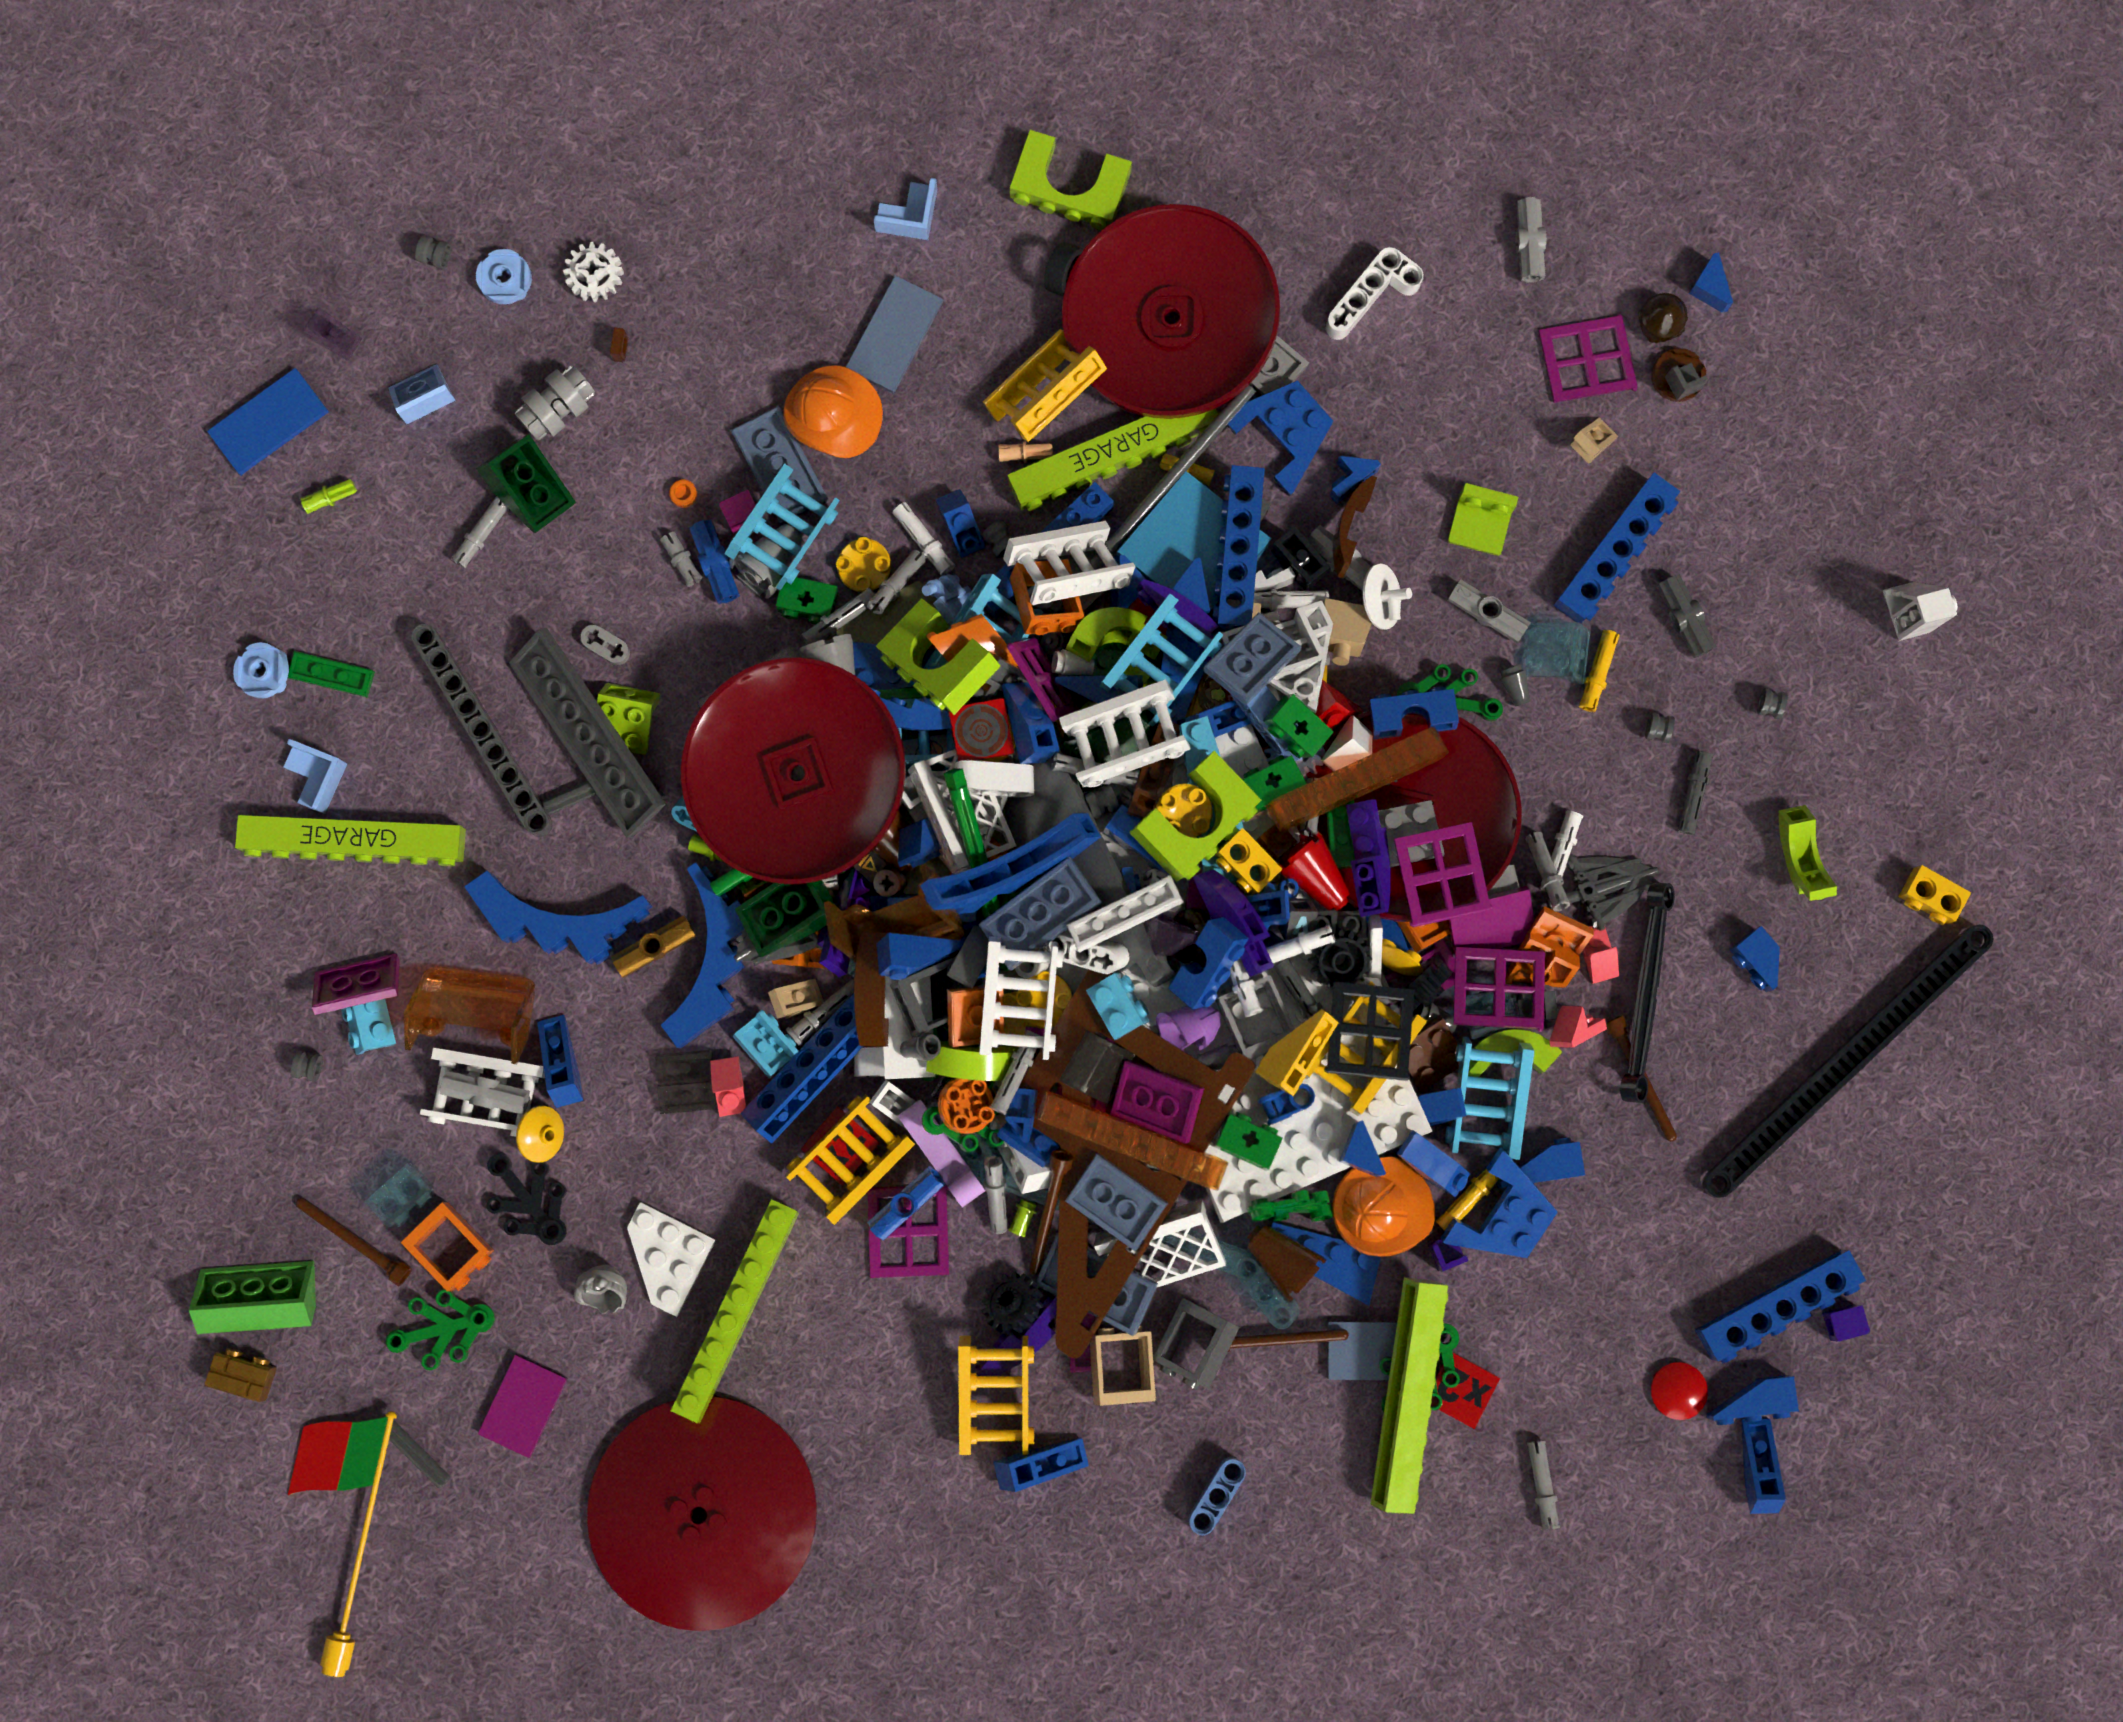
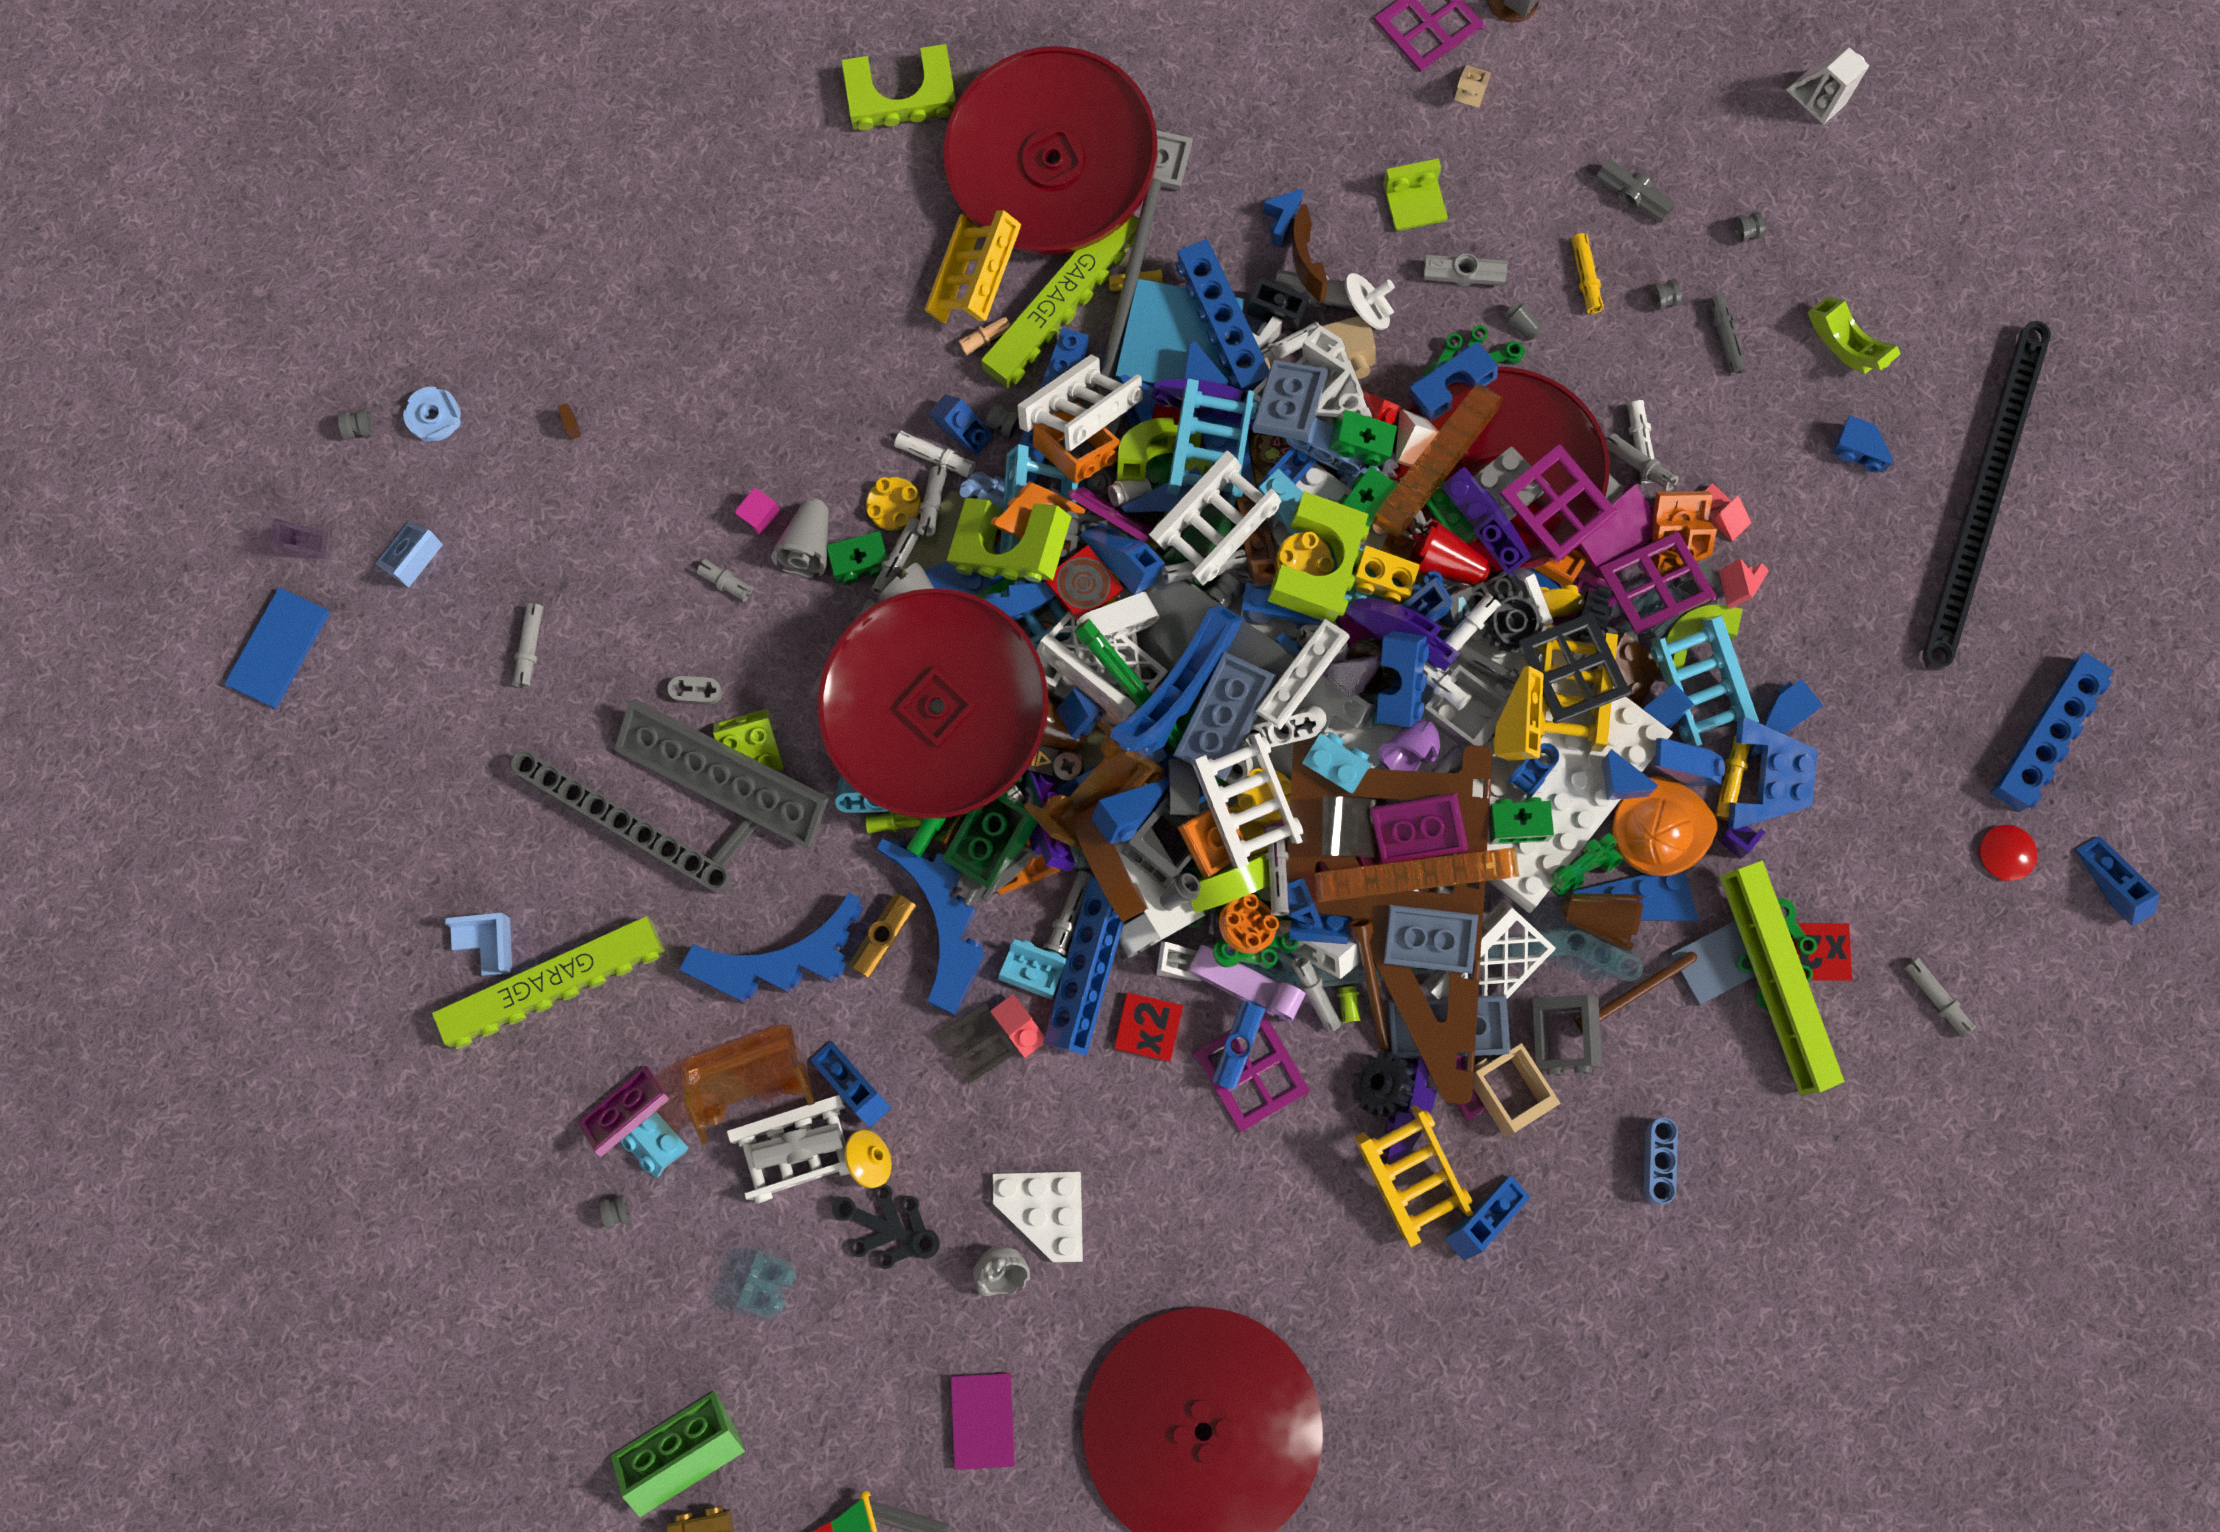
camera: 25 degrees left, 5 degrees down
(275, 674) = (400, 878): light blue plate -> none
(328, 496) = (368, 685): lime axle -> none
(330, 674) = (452, 844): green tile -> none
(396, 1271) = (798, 1358): reddish brown piece -> none
(428, 1226) = (807, 1301): orange window -> none
(445, 1328) = (872, 1387): green plant -> none
(526, 483) = (548, 582): dark green slope -> none
(572, 392) = (532, 509): light grey piece -> none
(582, 266) = (499, 373): white gear -> none
(683, 493) = (695, 522): orange tile -> none
(714, 561) = (757, 566): blue piece -> none
(735, 1312) = (1136, 1226): lime brick -> none
(756, 524) = (779, 510): medium azure fence -> none
(767, 447) = (770, 455): sand blue tile -> none
(796, 998) = (1038, 914): tan slope -> none
(834, 411) = (795, 383): orange piece -> none
(876, 1165) = (1184, 1053): yellow fence -> none
(894, 334) = (813, 293): sand blue tile -> none
(914, 218) = (776, 189): light blue panel -> none
(1059, 267) = (932, 161): black tyre -> none
(1294, 421) = (1209, 194): blue wing -> none
(1367, 296) = (1210, 58): white beam -> none
(1556, 651) = (1541, 274): clear light blue bracket -> none
(1618, 1028) = (1778, 569): reddish brown piece -> none
(1630, 876) = (1711, 433): dark grey bar -> none
(1634, 1084) = (1818, 603): black piece -> none
(1654, 491) = (1558, 102): blue brick -> none
(1762, 1397) = (2082, 819): blue slope -> none
(1846, 1322) = (2116, 717): dark purple panel -> none
(1935, 888) = (1976, 311): yellow brick -> none

